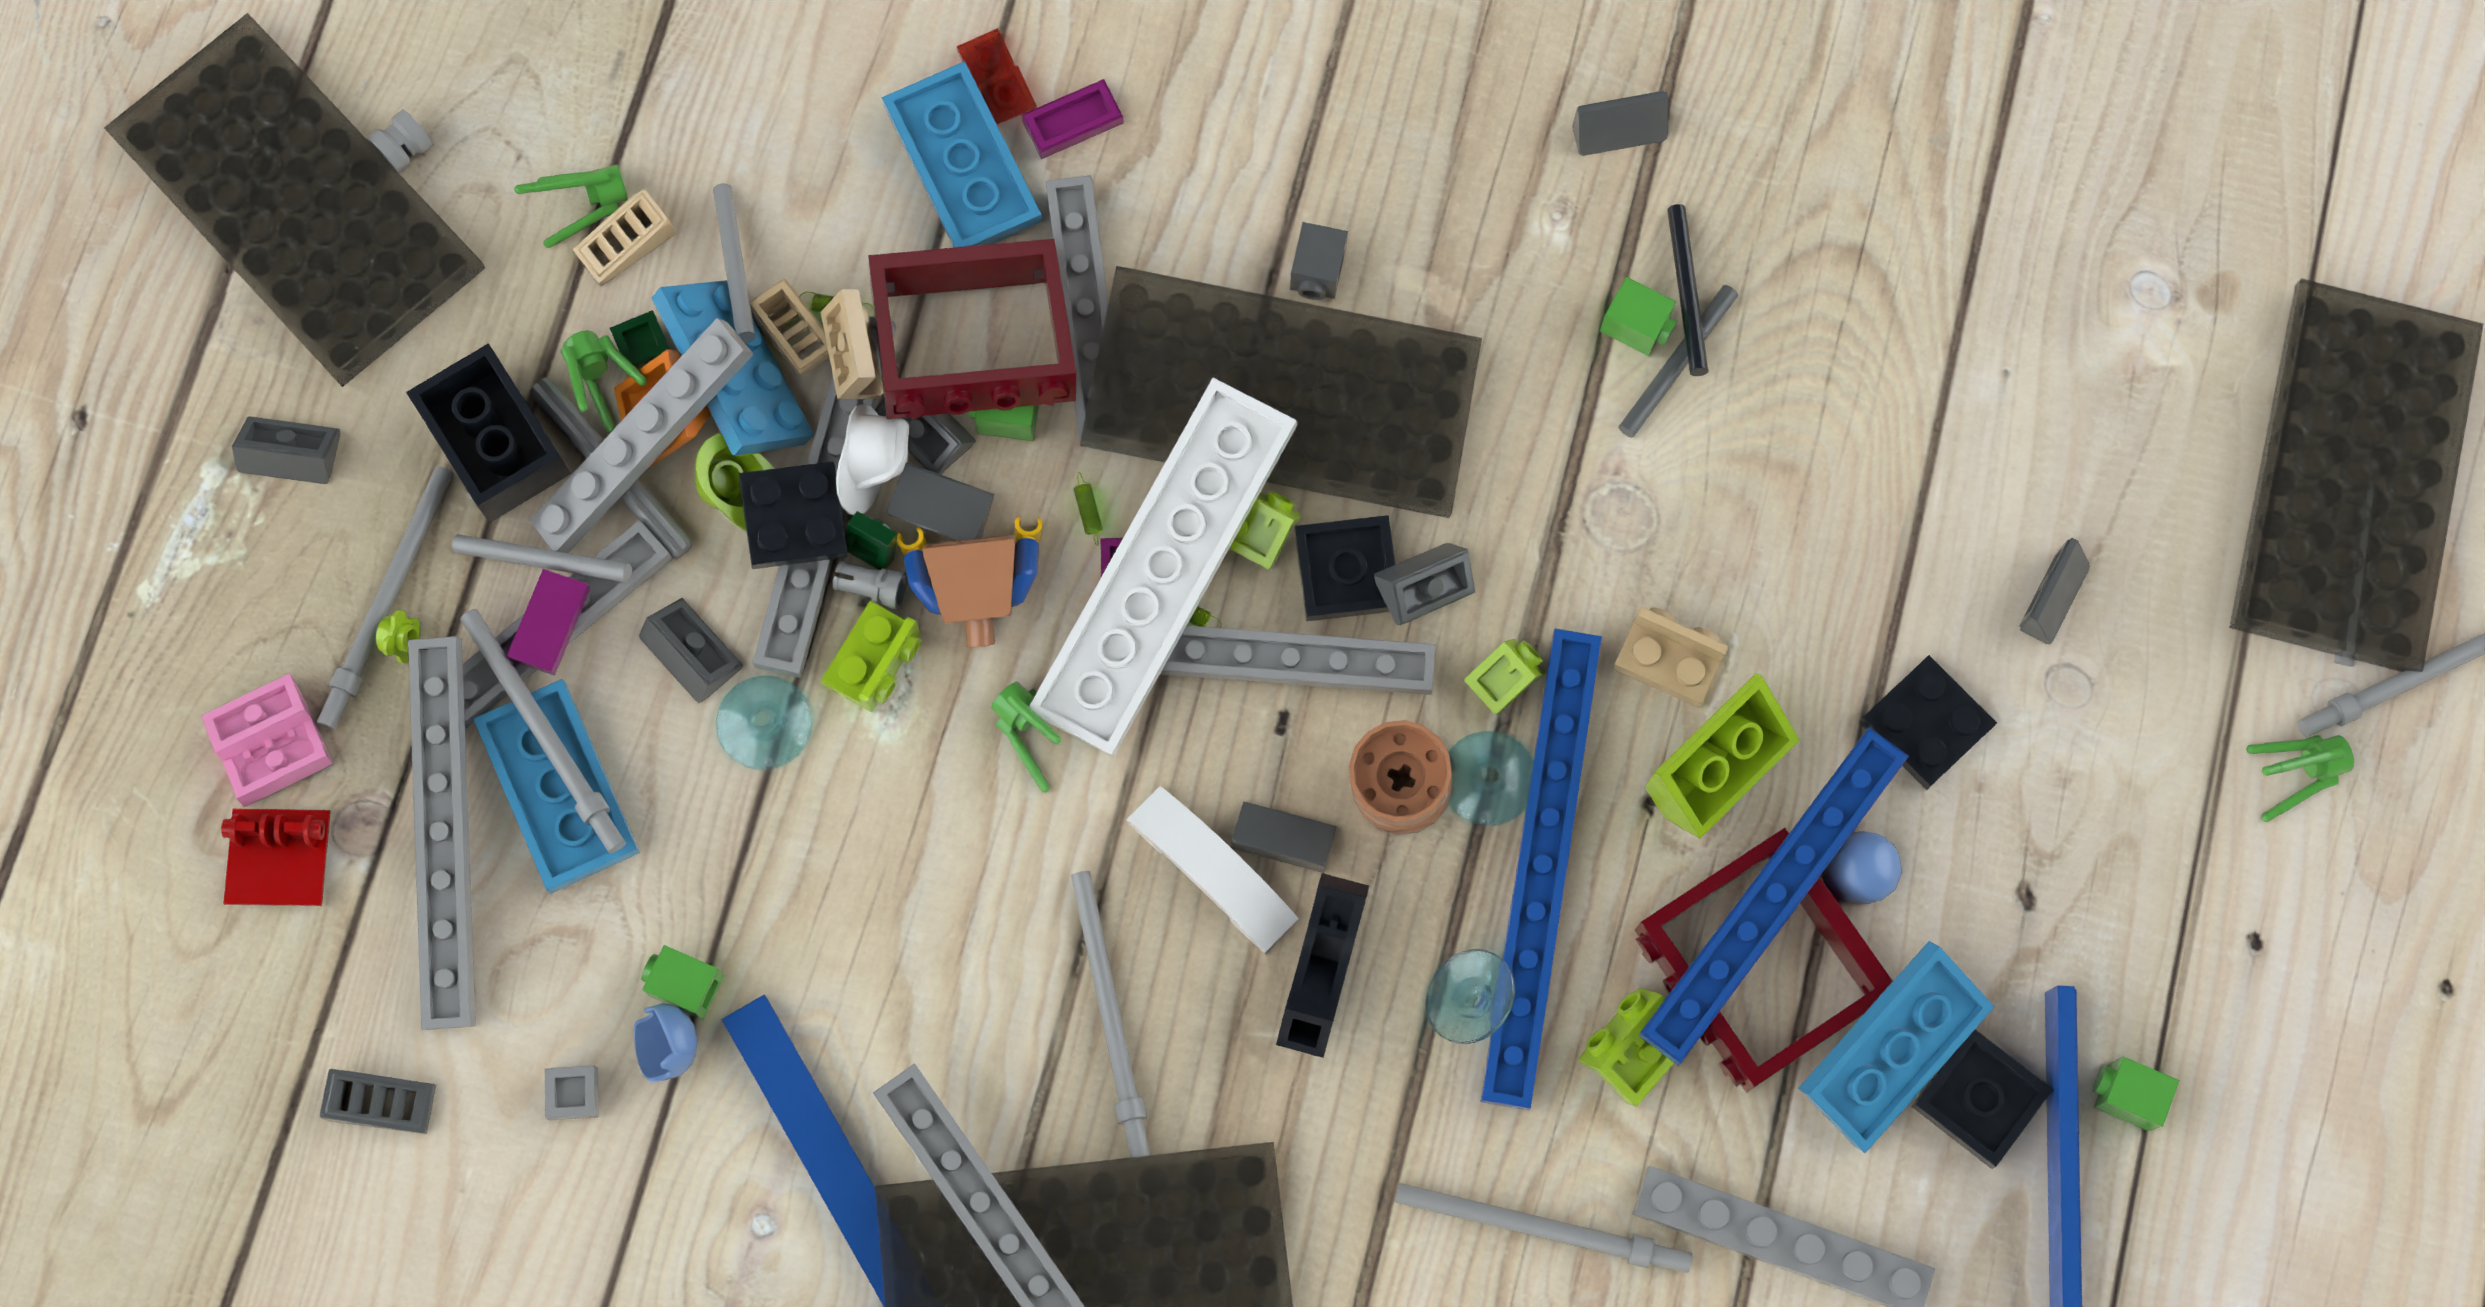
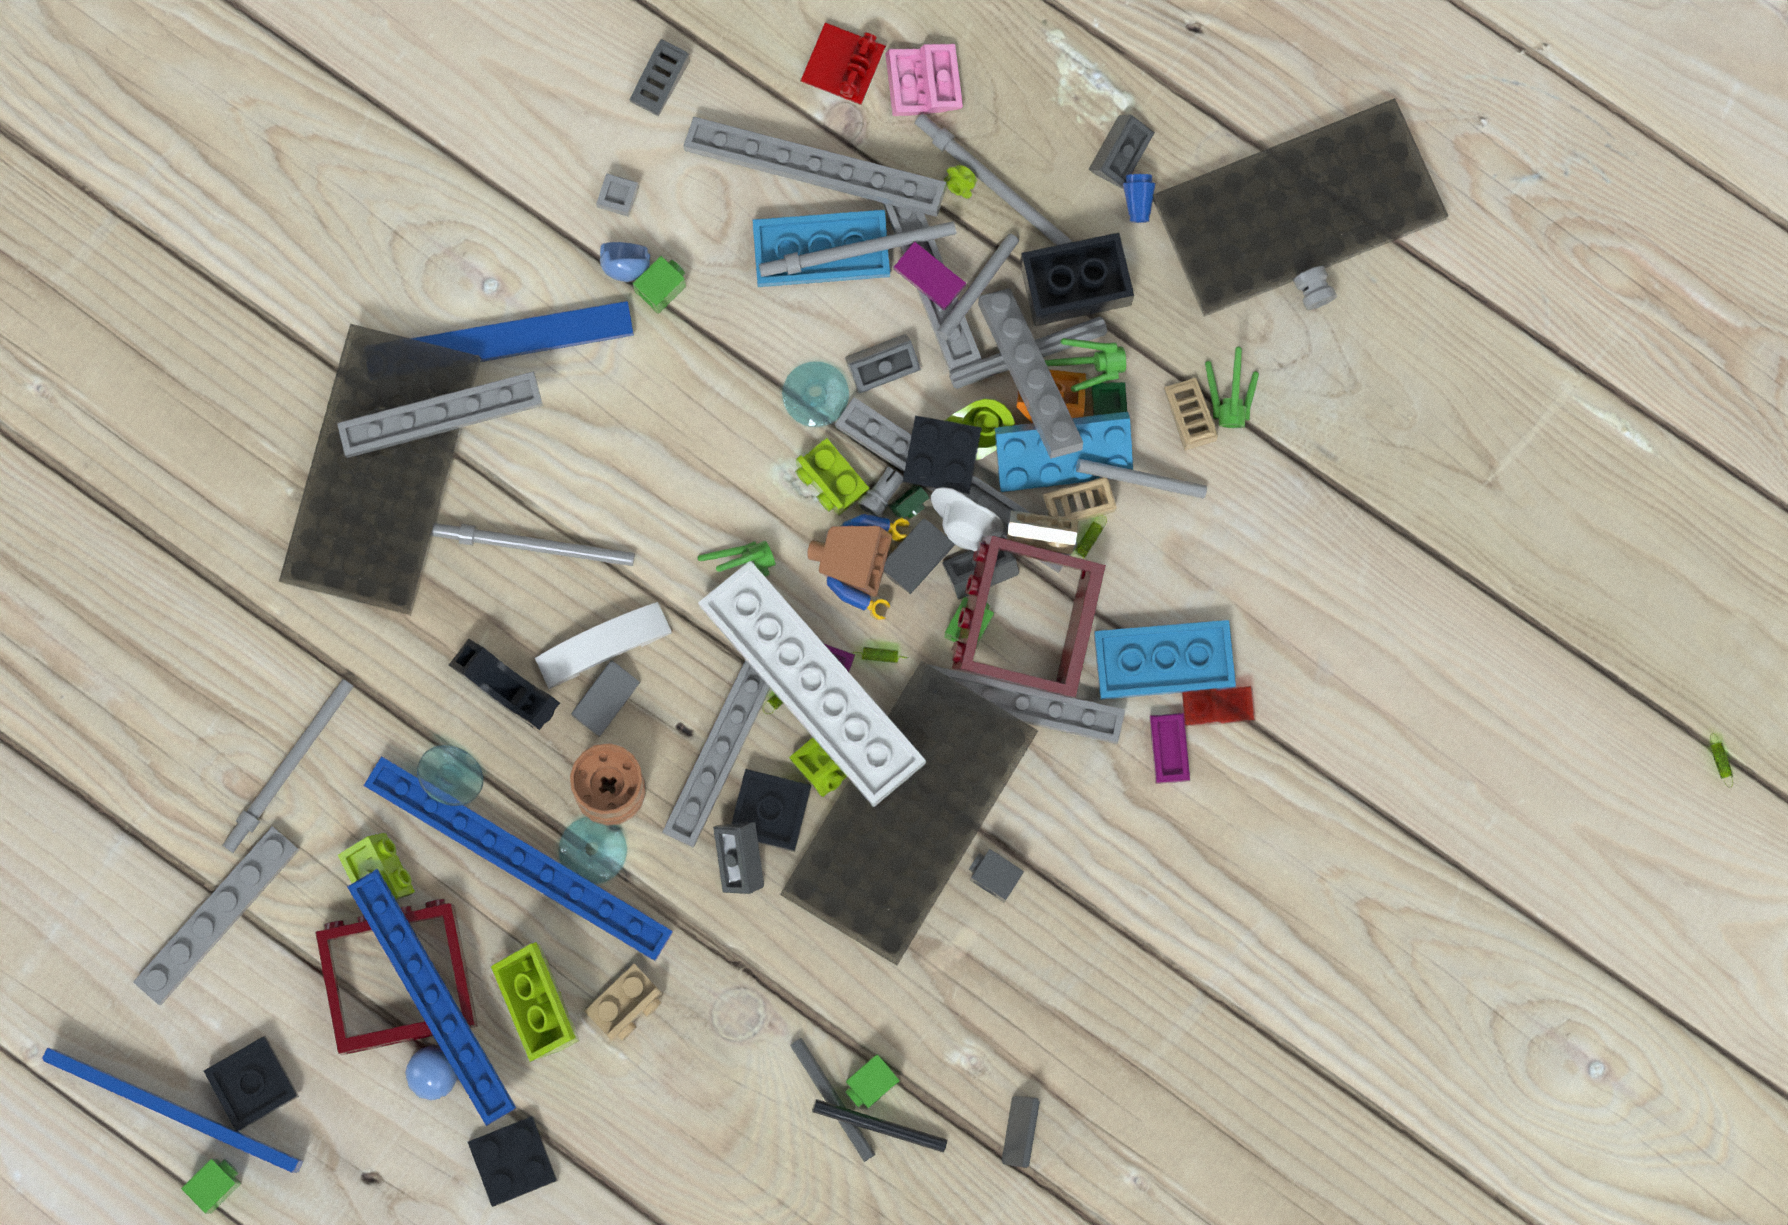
camera: 110 degrees right, 5 degrees up
(345, 400) = (1139, 196): none -> blue cone
(1505, 674) = (655, 888): lime bracket -> none
(1896, 1047) = (303, 1036): dark azure plate -> none

